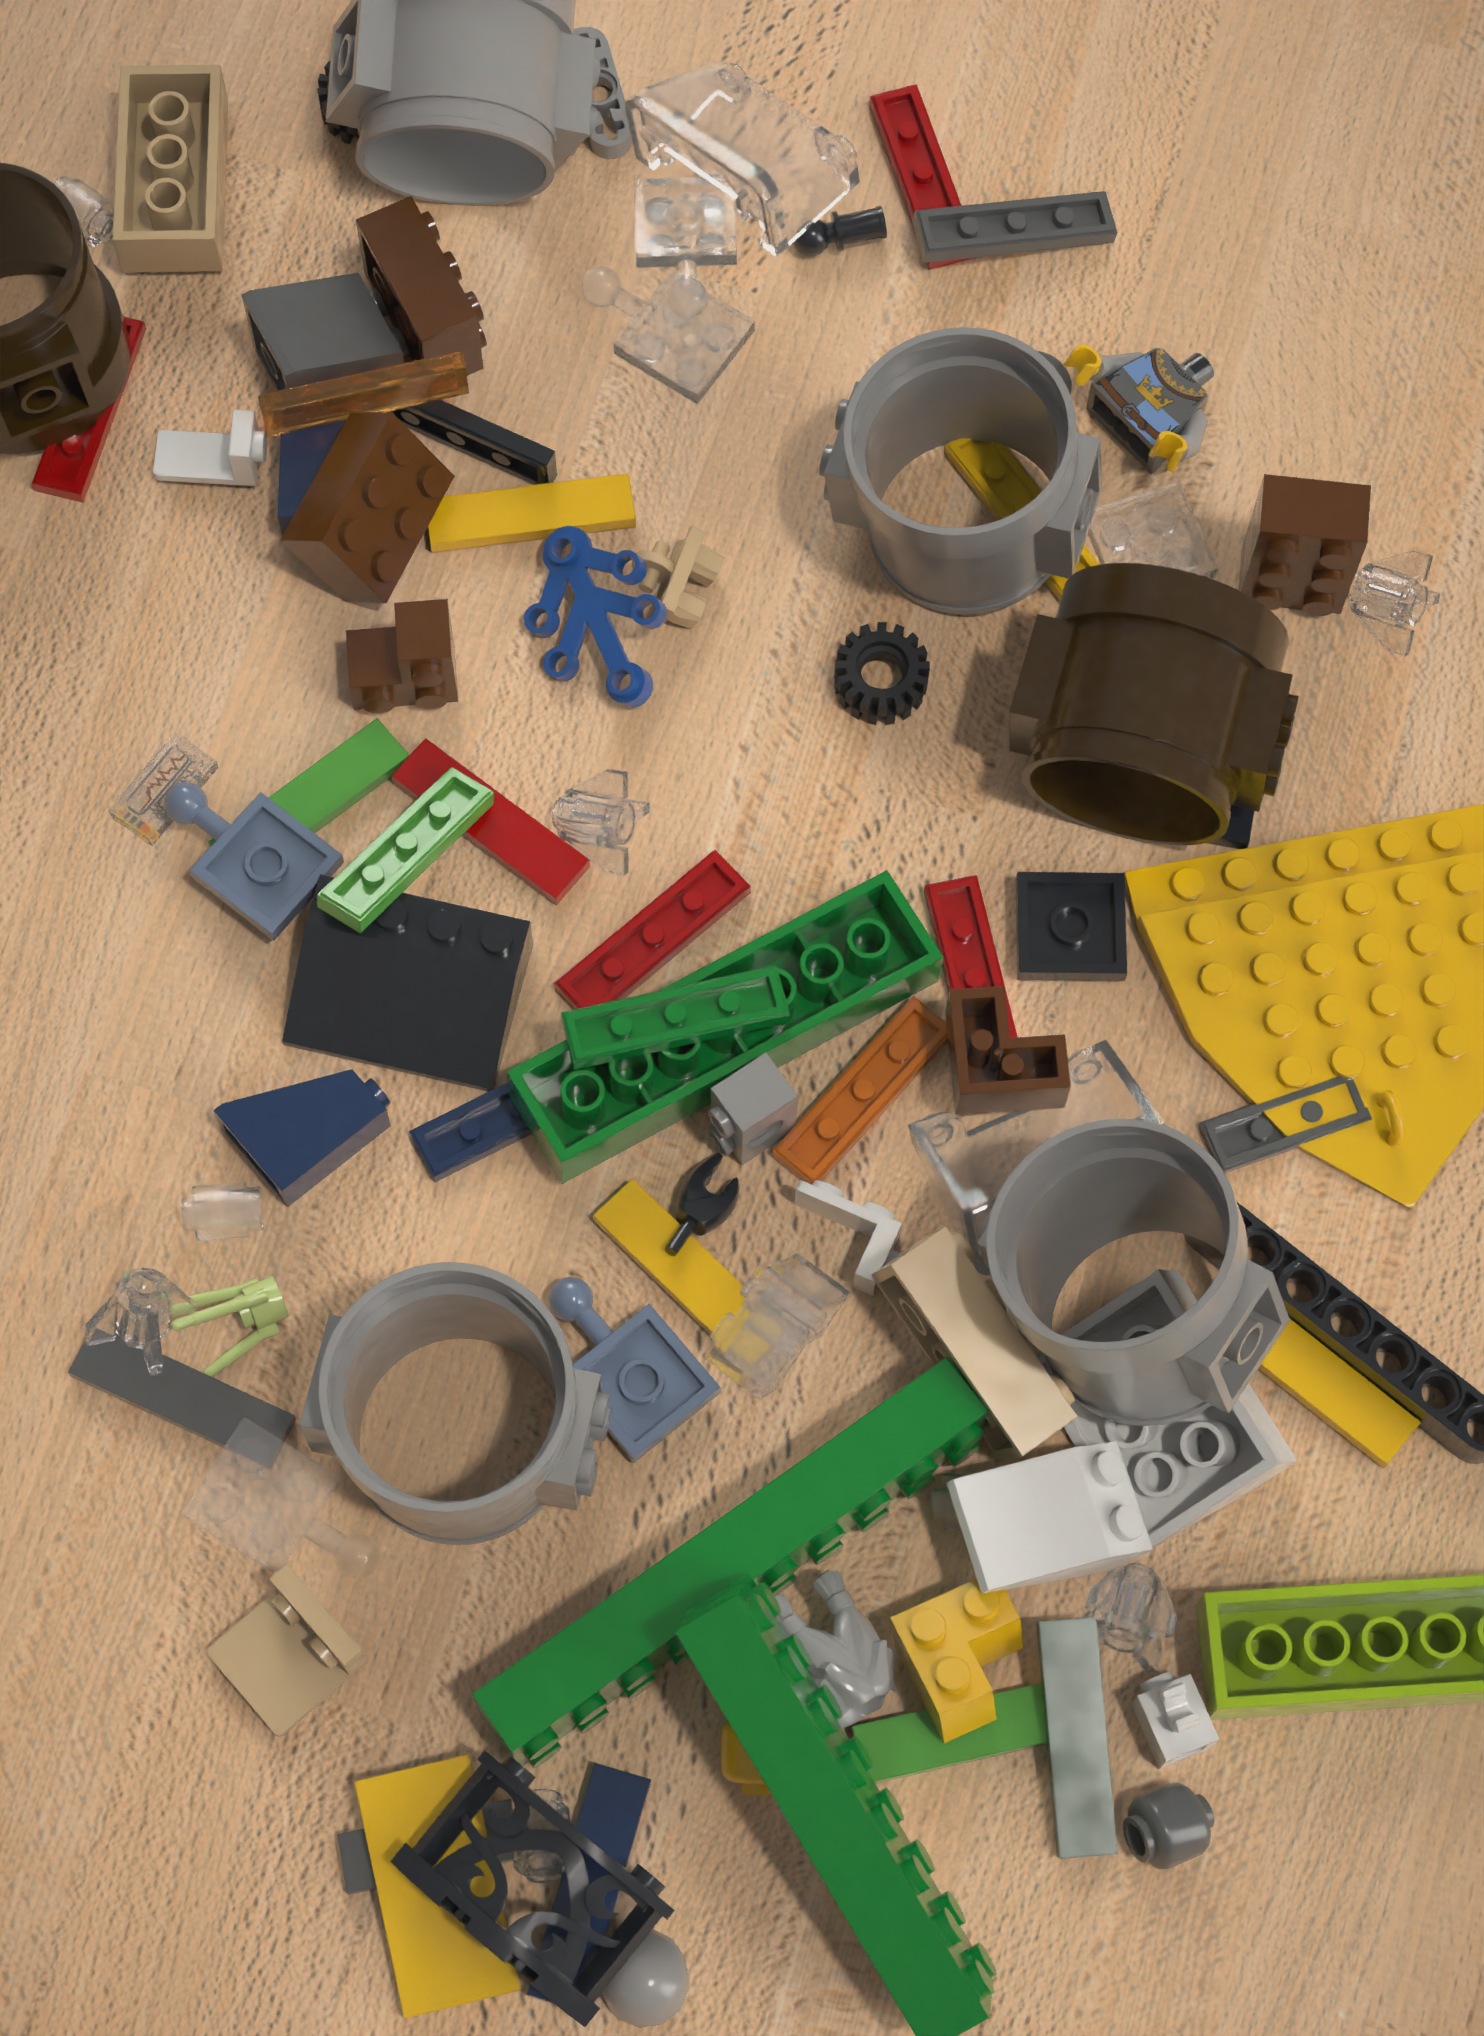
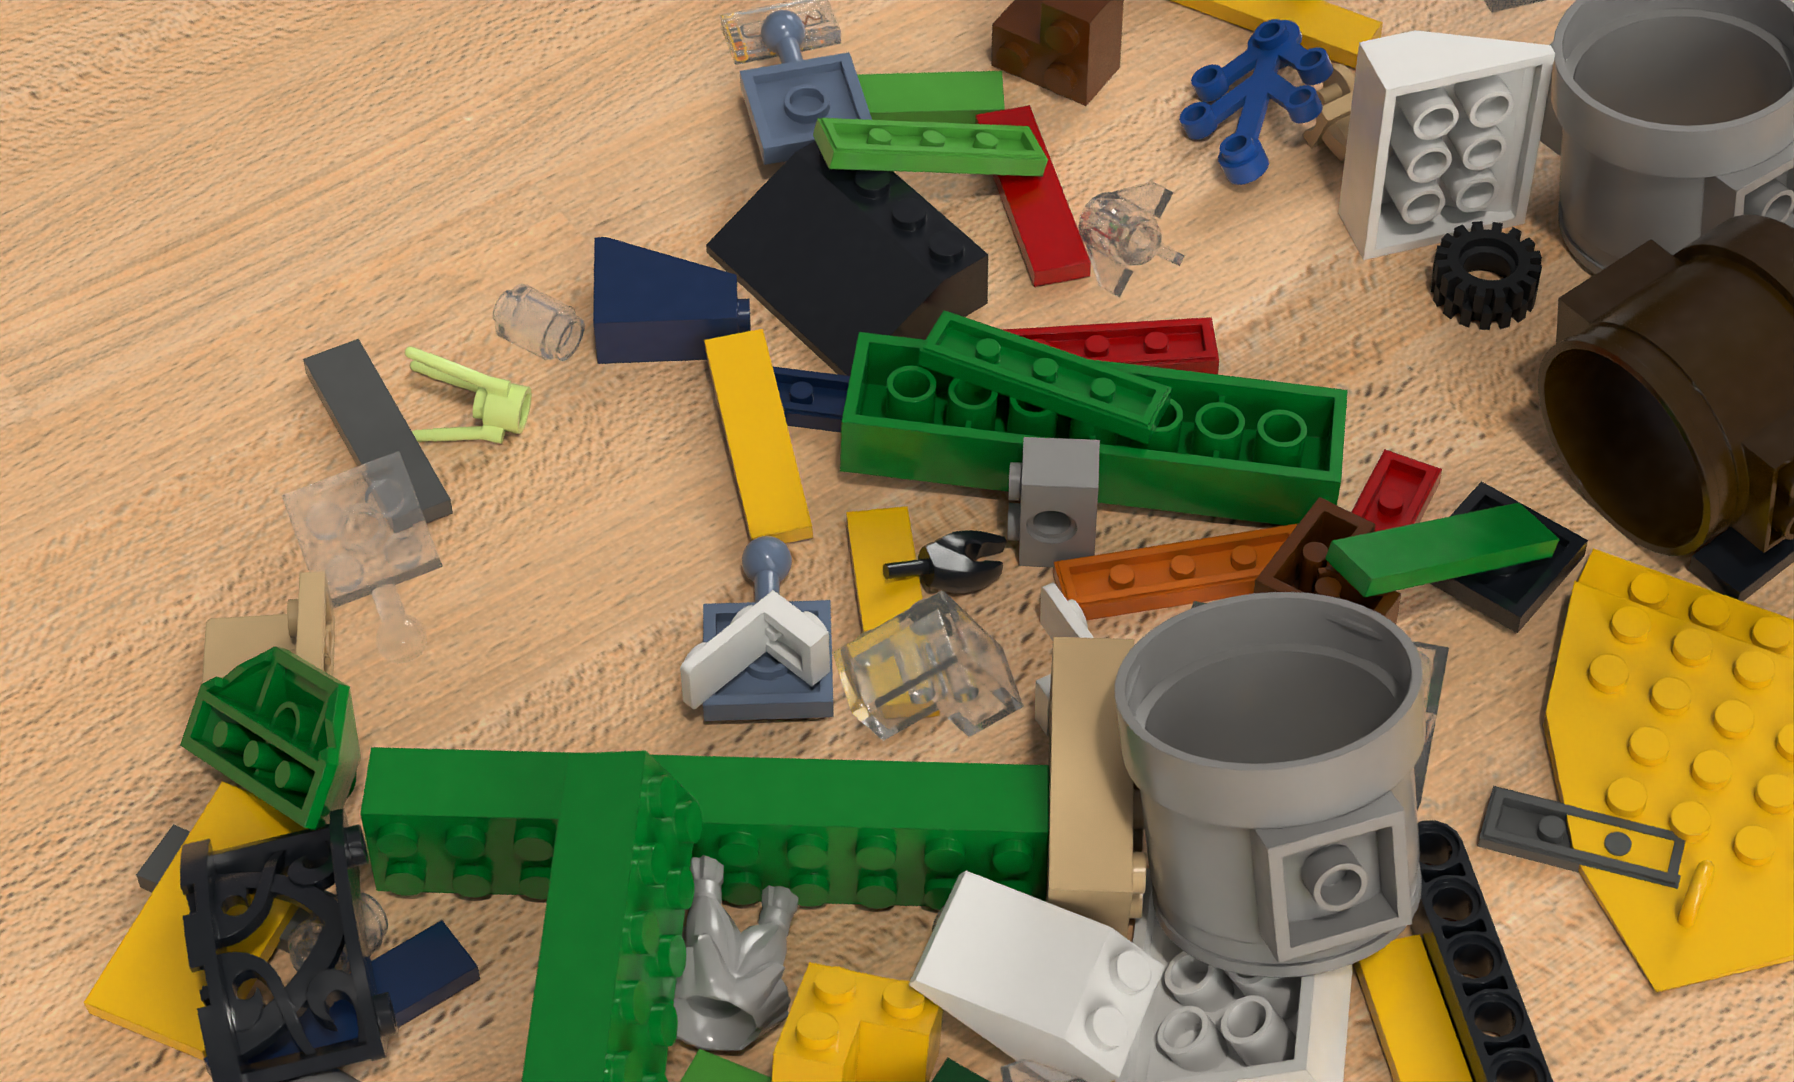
camera: 40 degrees right, 20 degrees down
(140, 1314) = (385, 333): clear brick -> none
(379, 1726) = (280, 734): none -> green wedge
(439, 1305) = (551, 449): light grey cylinder -> none
(477, 1197) = (758, 437): none -> yellow tile
(664, 1363) = (769, 626): none -> white bracket
(793, 599) = (1440, 137): none -> white slope
(1057, 970) = (1441, 549): none -> green tile

